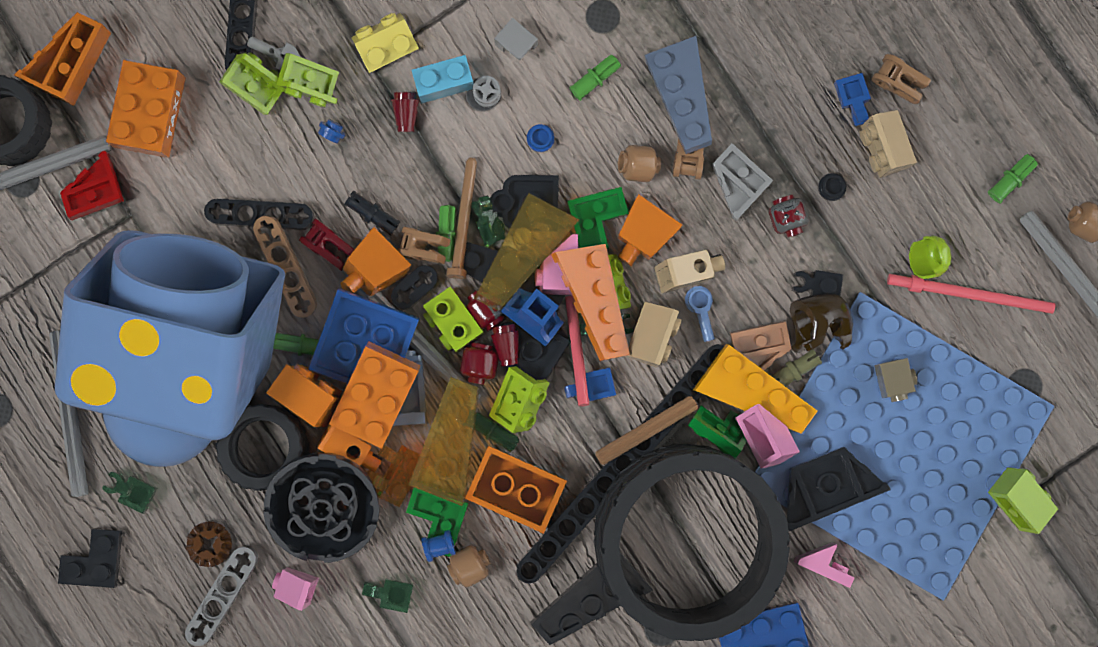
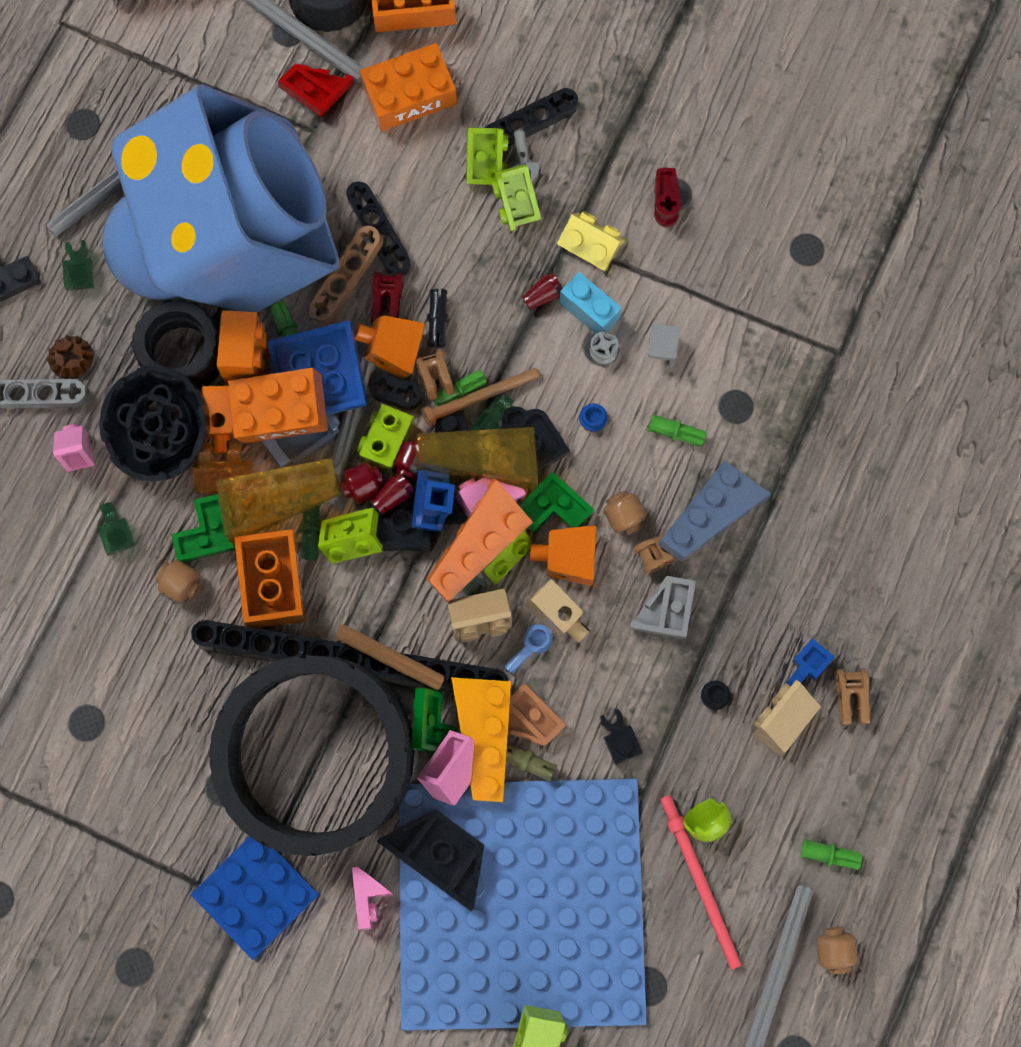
camera: 60 degrees right, 10 degrees down
(331, 130) = (486, 243): blue plate -> none
(438, 546) = (180, 542): blue bush -> none
(577, 352) = (416, 565): coral bar -> none
(584, 602) = (203, 700): black wing -> none
(599, 385) = (405, 594): blue plate -> none
(788, 216) = (663, 671): head -> none
(820, 313) = (593, 745): dark brown piece -> none
(896, 379) = (575, 855): dark tan brick -> none

